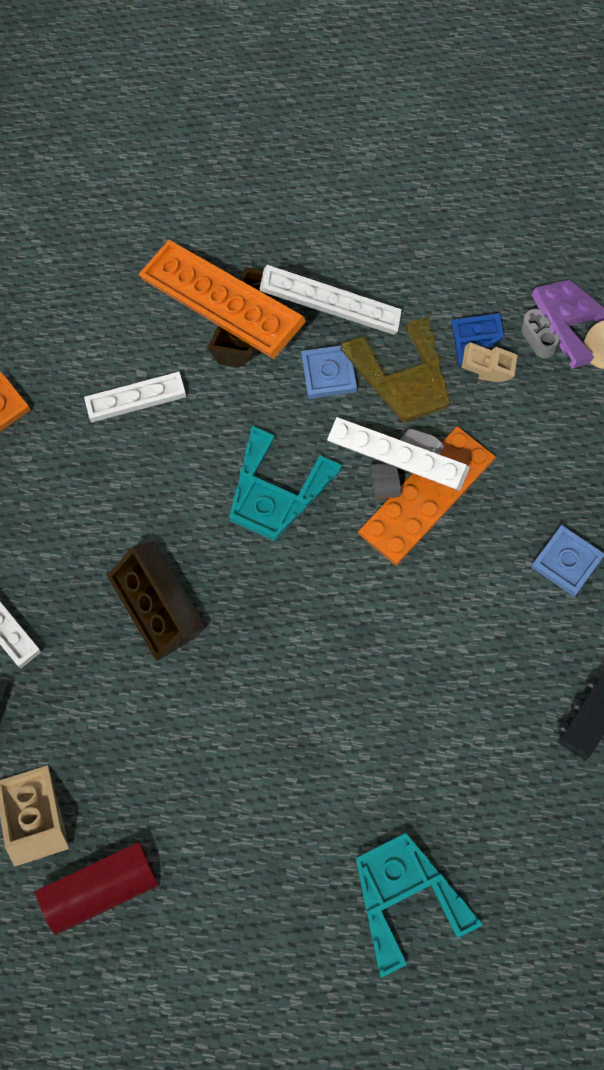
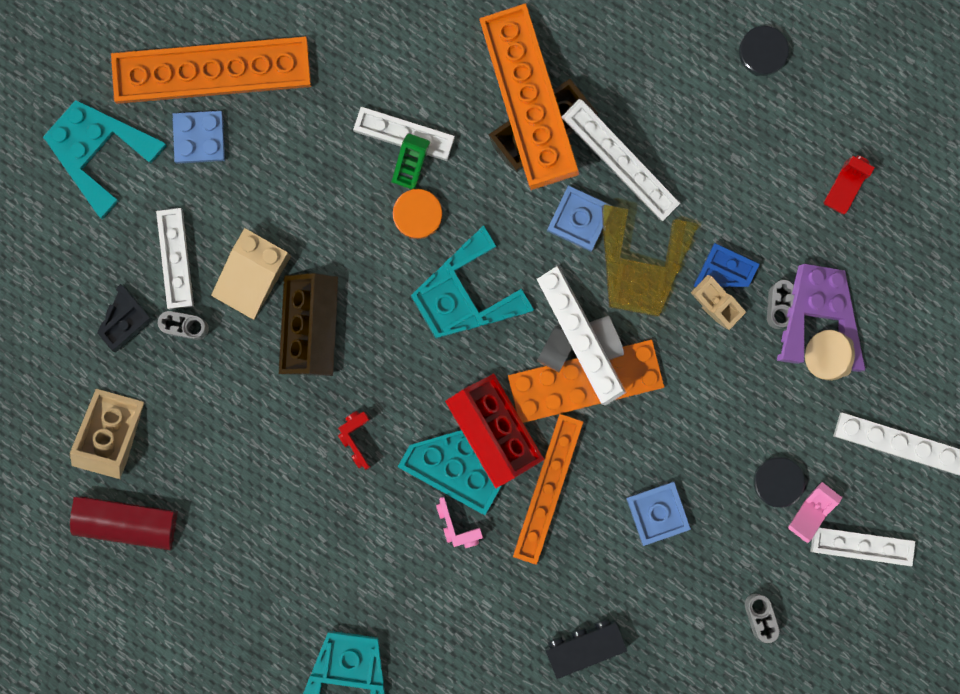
camera: 30 degrees right, 15 degrees up
(38, 681) = (186, 324): none -> light grey beam
(75, 589) = (250, 273): none -> tan slope
(149, 393) = (415, 147): none -> green slope
(189, 451) = (417, 214): none -> orange tile
(251, 656) = (354, 422): none -> red bracket
(373, 628) = (452, 468): none -> teal wing
(379, 579) = (494, 430): none -> red slope
(383, 164) = (763, 50): none -> black tile
(422, 688) = (467, 538): none -> bright pink bracket
(461, 603) = (547, 489): none -> orange plate
(521, 213) = (848, 183): none -> red bracket

